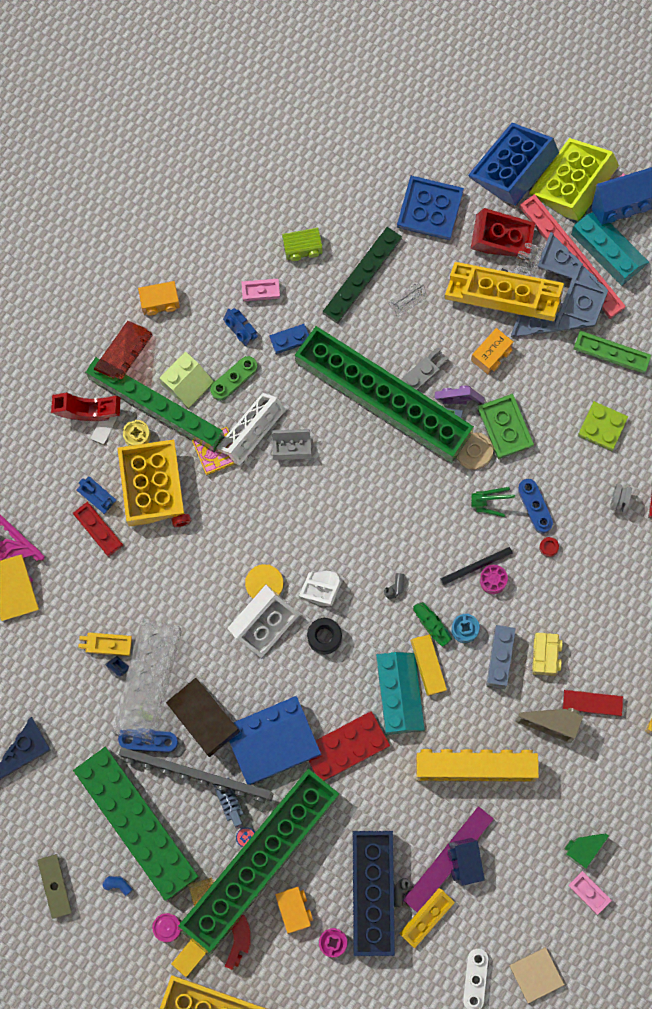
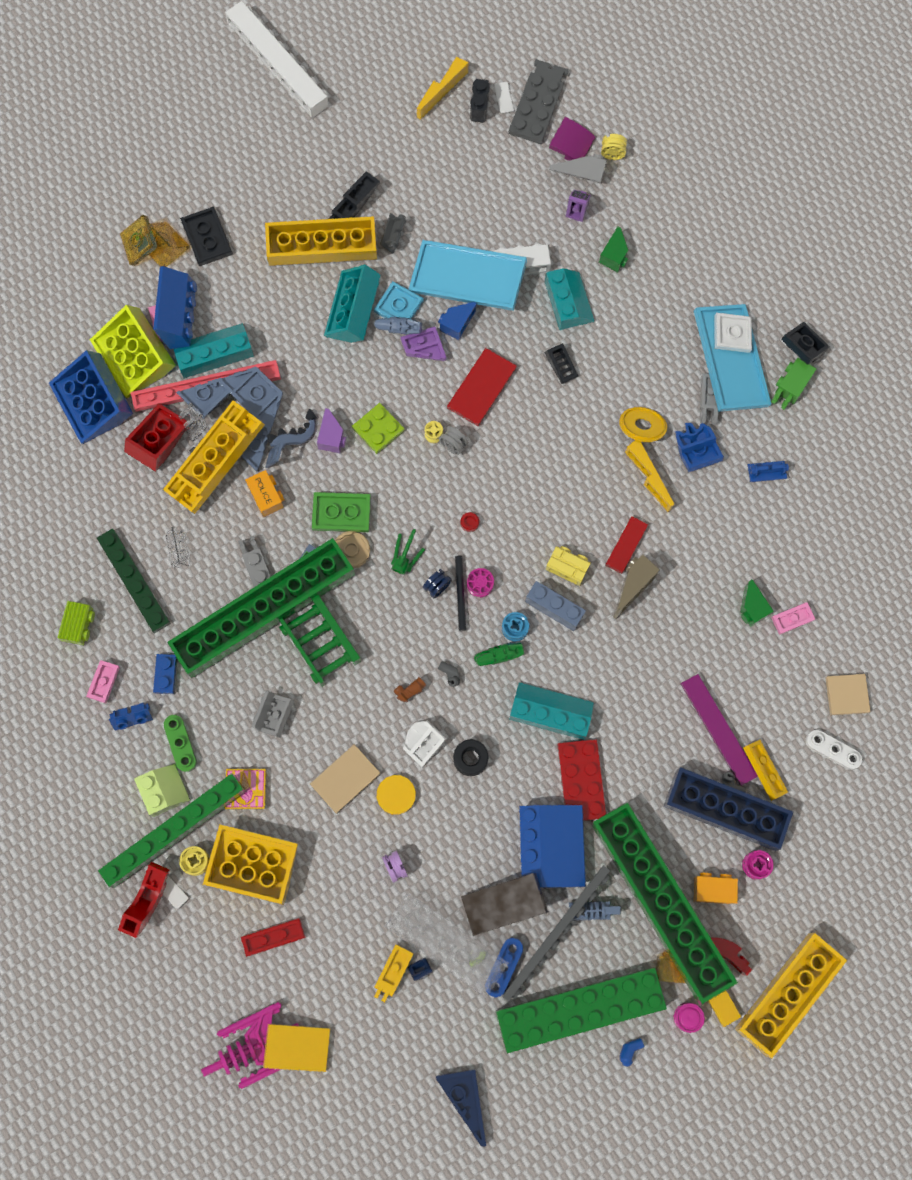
camera: 75 degrees left, 0 degrees up
(57, 899) = (623, 1116): olive tile -> none
(96, 494) = (237, 925): blue hinge -> none
(123, 350) = (104, 840): clear red windscreen -> none
(159, 298) = (64, 784): light orange brick -> none
(181, 520) = (301, 850): red tile -> none
(198, 607) = (394, 862): none -> lavender wheel
(244, 835) = (630, 908): coral tile -> none
(254, 428) = (241, 742): white fence -> none
(260, 533) = (345, 779): none -> tan tile
(263, 621) = (434, 809): white slope -> none
(366, 559) = (412, 690): none -> dark orange arm
(383, 474) = (338, 640): none -> green fence
(428, 665) = (535, 674): yellow tile -> none
(430, 207) = (97, 490): blue plate -> none
(458, 396) = (295, 533): medium lavender wing -> none
(466, 861) = (729, 713): dark blue brick -> none
(474, 539) = (437, 583): none -> dark blue wheel
(477, 766) = (647, 671): yellow brick -> none
(535, 514) = (435, 520): blue plate -> none
(556, 352) = (290, 438): none -> sand blue piece
(575, 385) = (331, 434): none -> medium lavender slope
(612, 352) = (313, 390): bright green plate -> none
(624, 474) = (433, 427): none -> light yellow wheel

